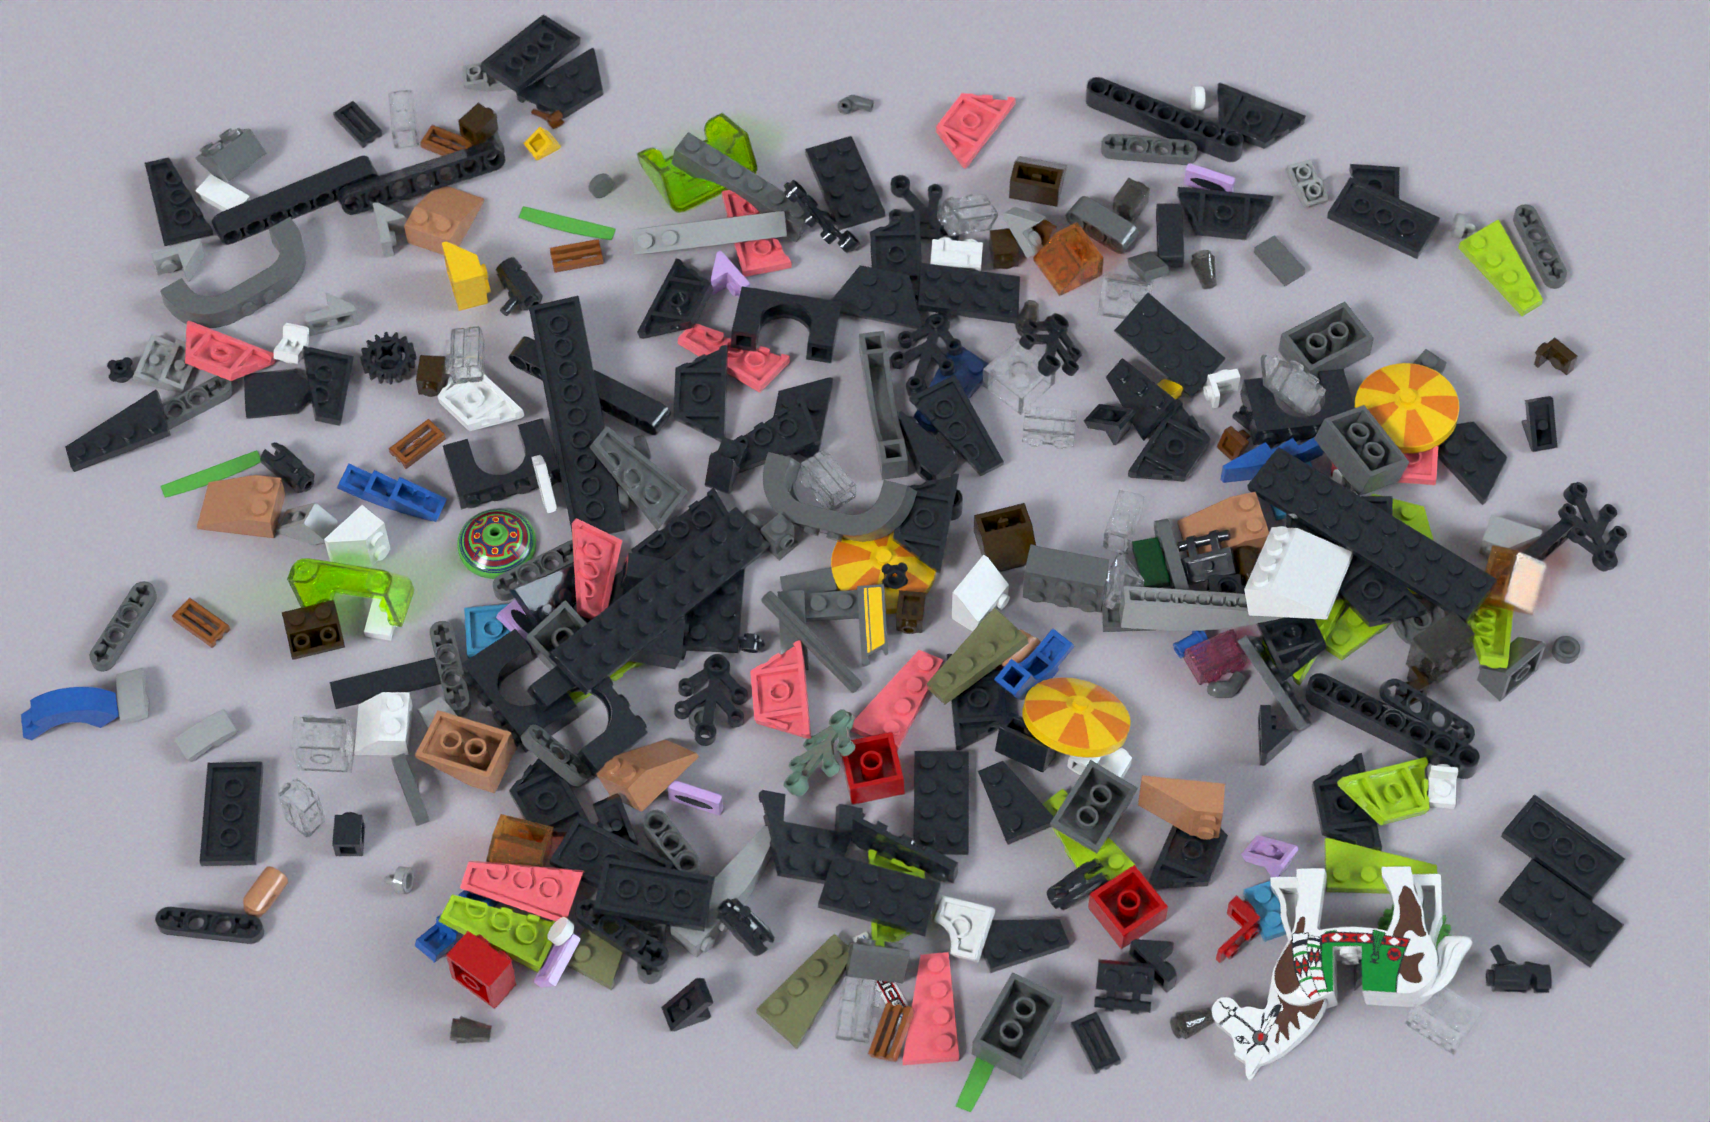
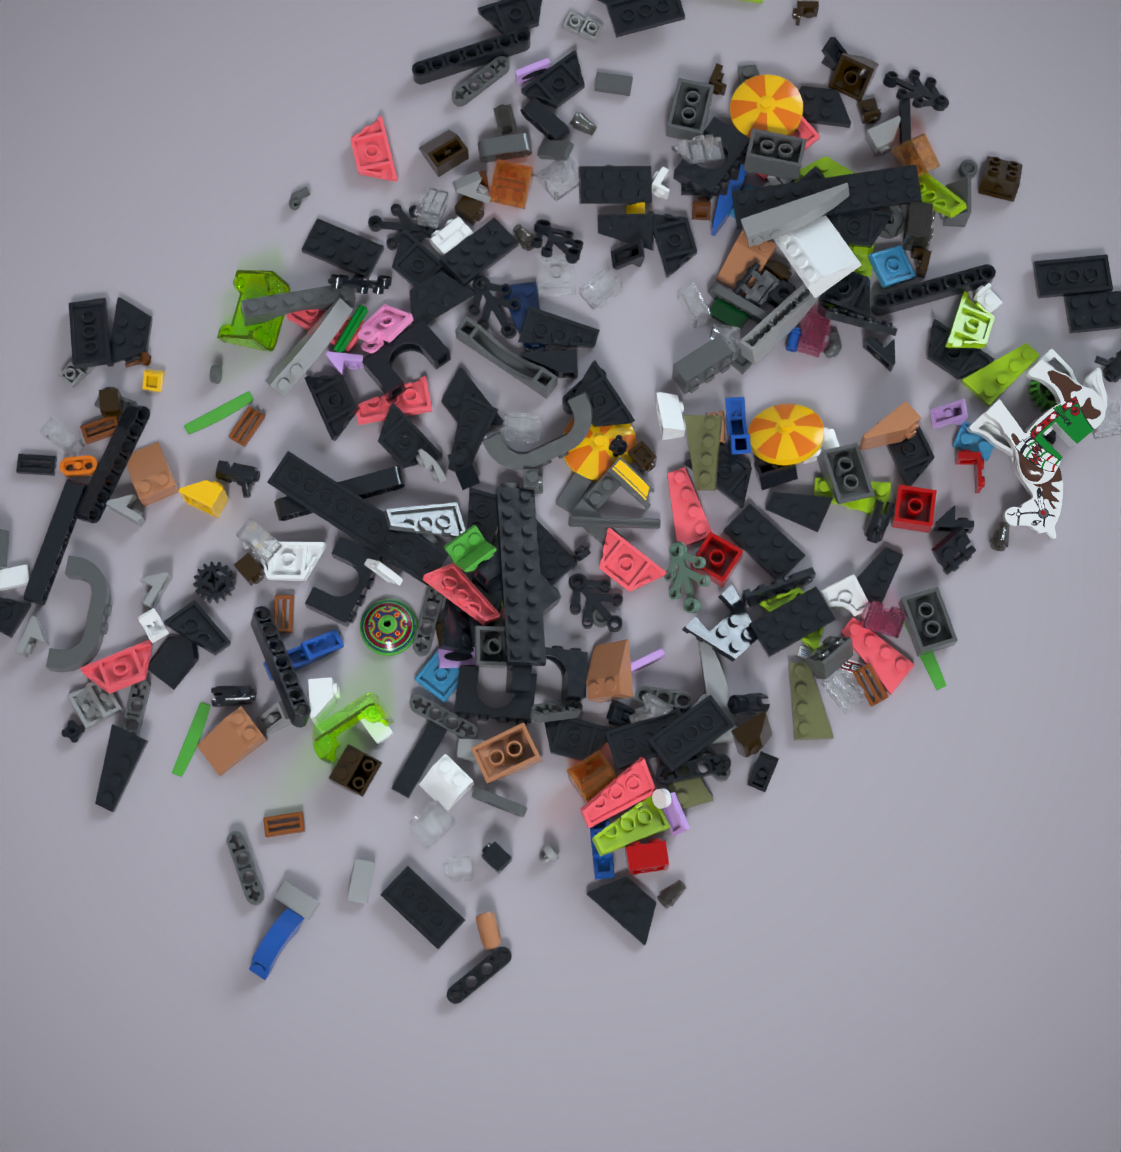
camera: 45 degrees left, 15 degrees up
(354, 477) = (280, 674): none -> black beam
(393, 155) = (79, 466): none -> orange plate
(416, 1002) = (627, 906): none -> black wing
(642, 446) = (406, 501): dark grey tile -> none
(644, 532) = (469, 549): none -> bright green bracket
(646, 834) = (653, 707): none -> clear slope
(699, 426) = (426, 460): none -> light grey slope
(715, 956) = (752, 735): none -> dark brown slope
(766, 252) = (350, 329): none -> green axle
(796, 276) = (383, 325): none -> bright pink plate
(972, 978) = (882, 619): none -> clear pink brick
(1005, 536) = (647, 371): dark brown slope -> none
(1105, 1063) = (964, 598): black tile -> none
(1197, 98) = (475, 27): white tile -> none
(1310, 515) = (792, 215): none -> light grey slope
(1372, 664) = (892, 266): none -> dark azure tile
(1387, 341) = (716, 80): none -> dark brown bracket
(1429, 707) = (944, 266): black beam -> none
(1519, 504) = (868, 111): none -> dark brown bracket
(1539, 457) = (853, 75): none -> dark brown slope
(1589, 685) = (1001, 178): none -> dark brown bracket

